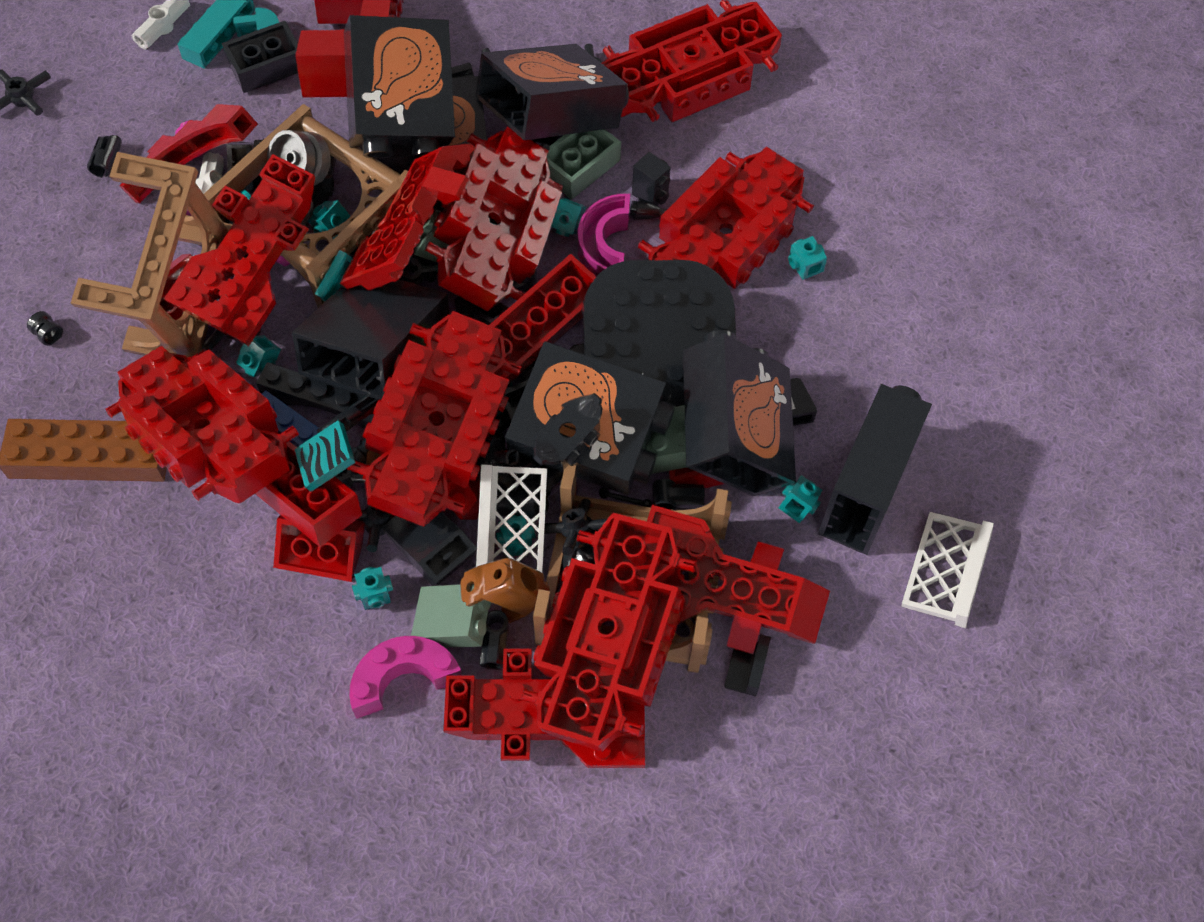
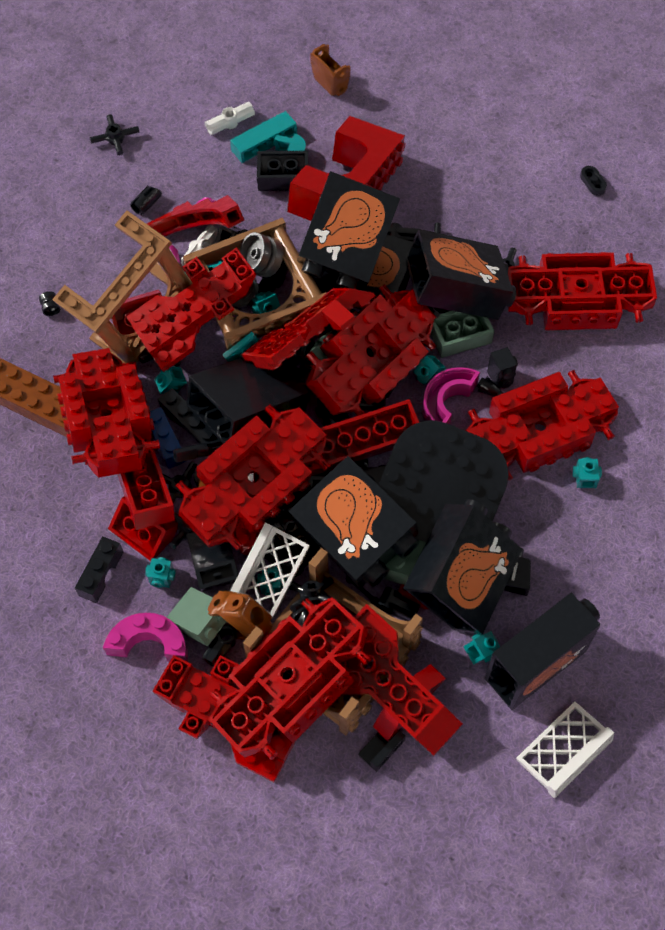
camera: 30 degrees right, 0 degrees up
(290, 624) = (92, 580): none -> black arch
(324, 456) = (166, 470): teal tile -> none
(553, 448) = (344, 521): black piece -> none

